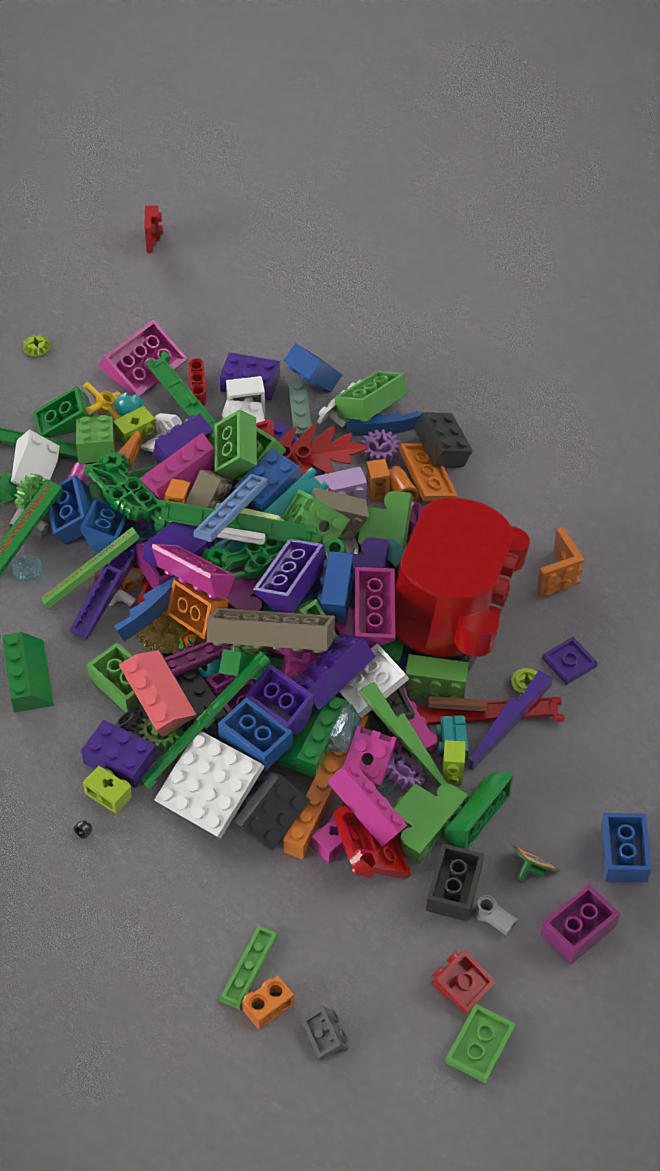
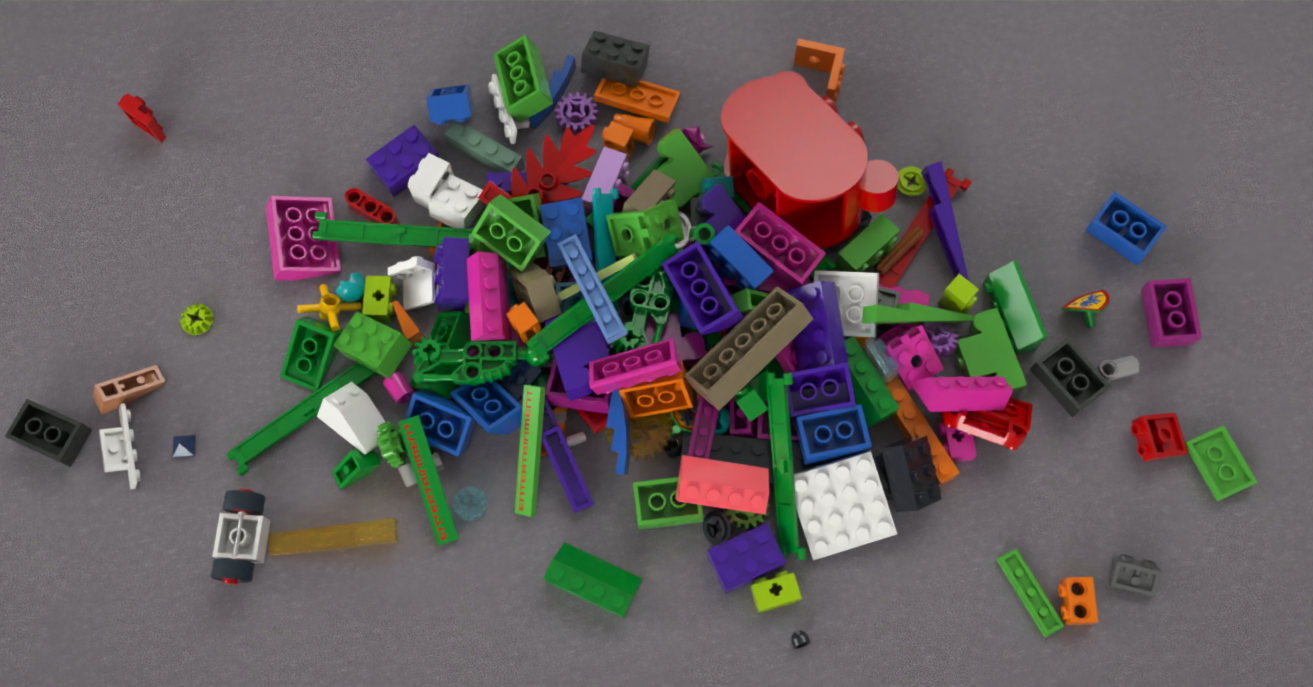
camera: 50 degrees left, 20 degrees up
(243, 536) = (622, 301): white axle -> none
(452, 729) = (927, 278): teal brick -> none
(569, 660) = (912, 134): dark purple tile -> none

